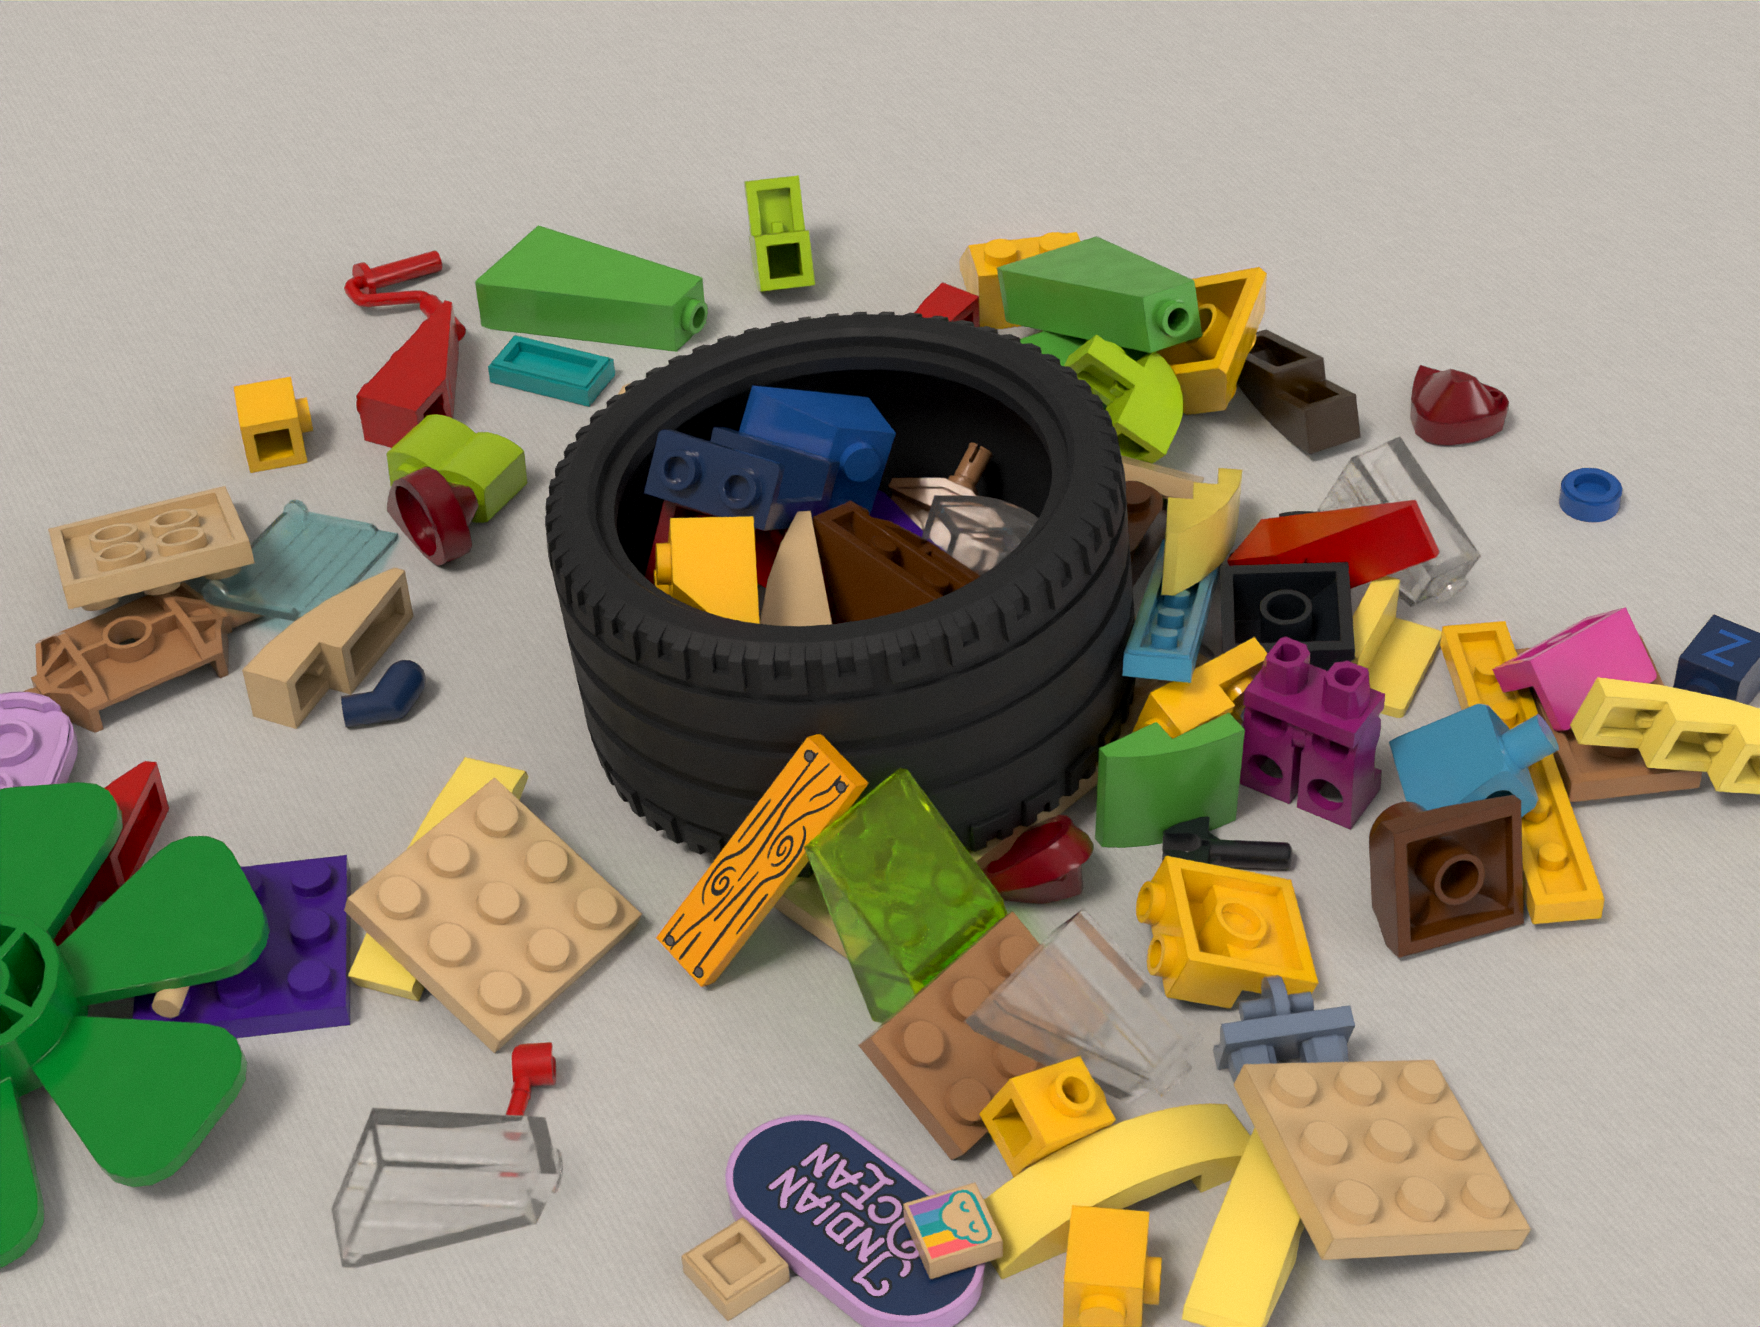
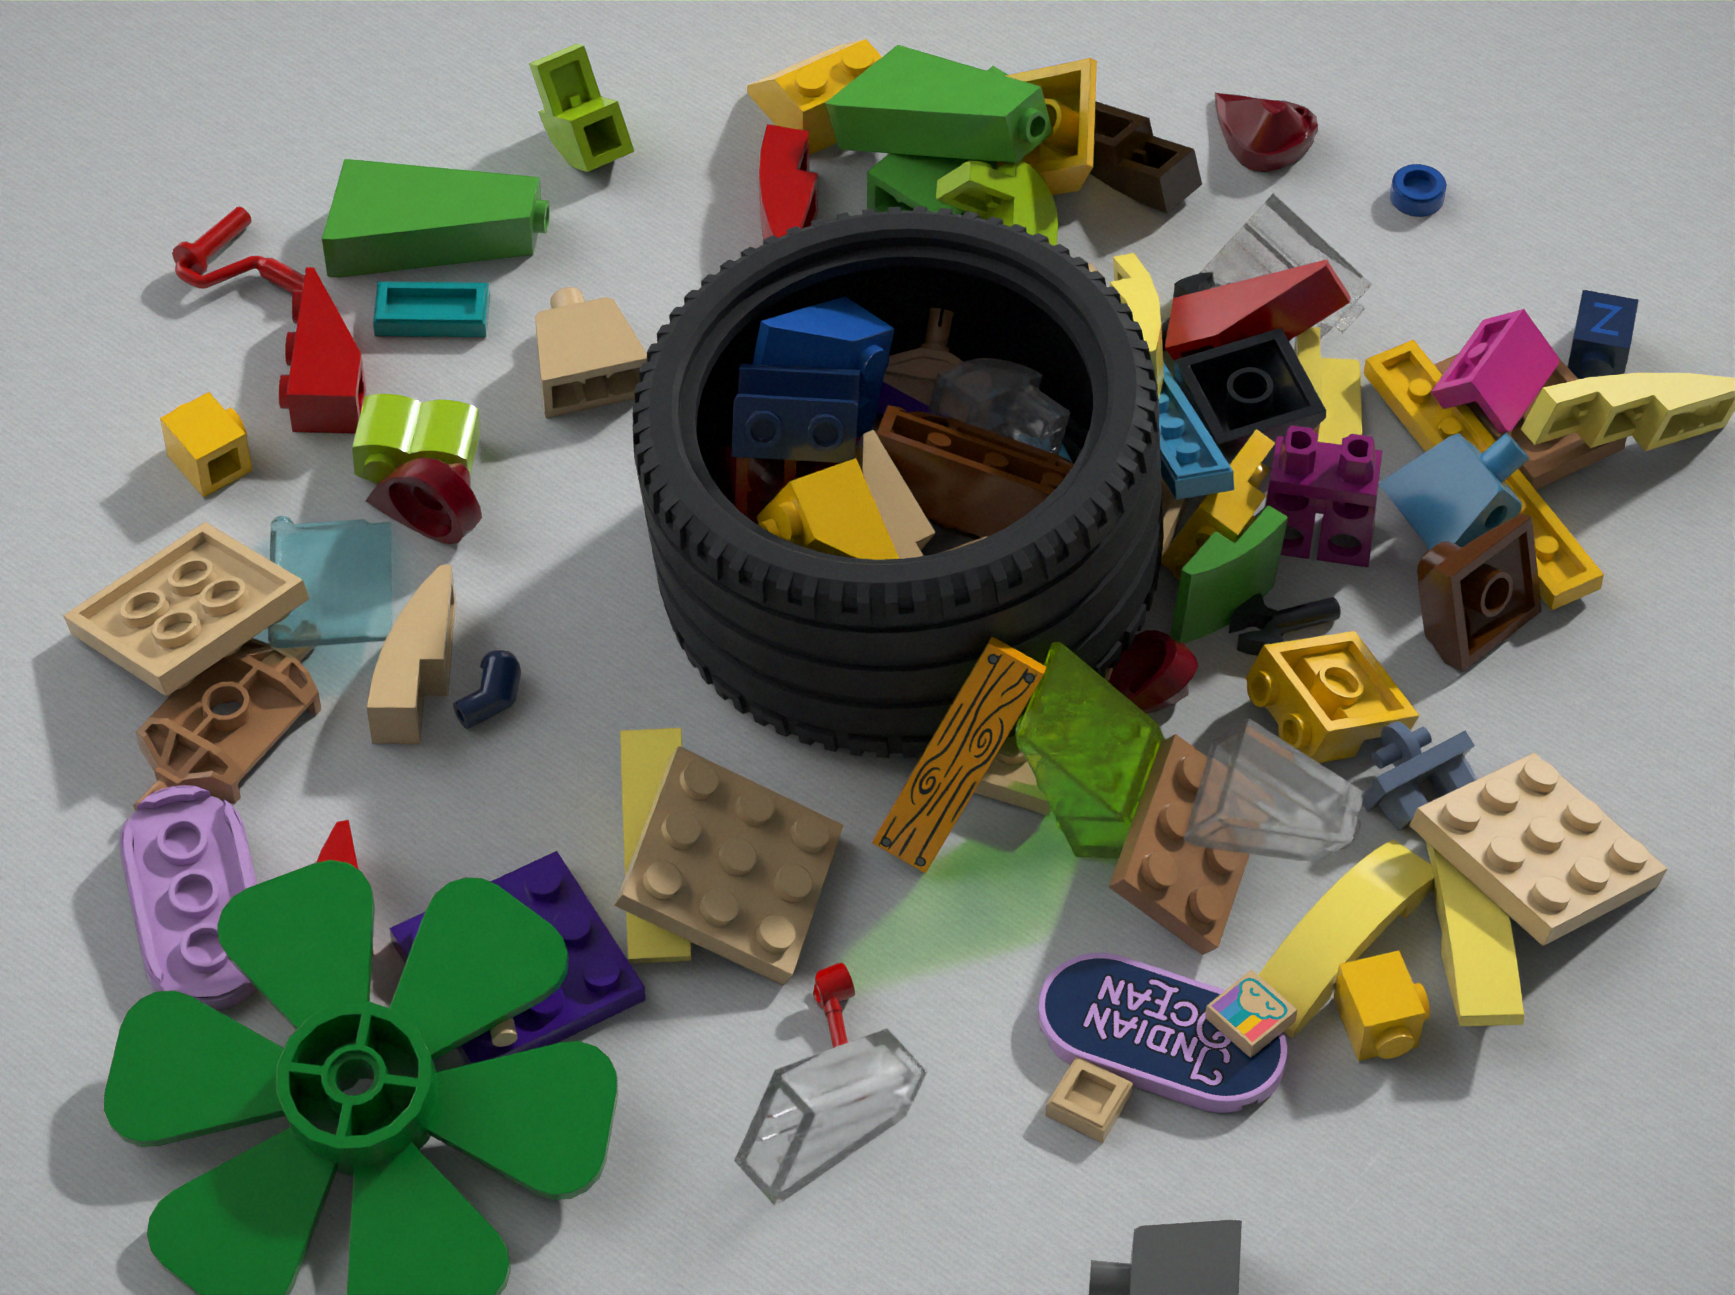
camera: 25 degrees left, 10 degrees up
(1045, 1113) = (1277, 897): yellow brick -> none

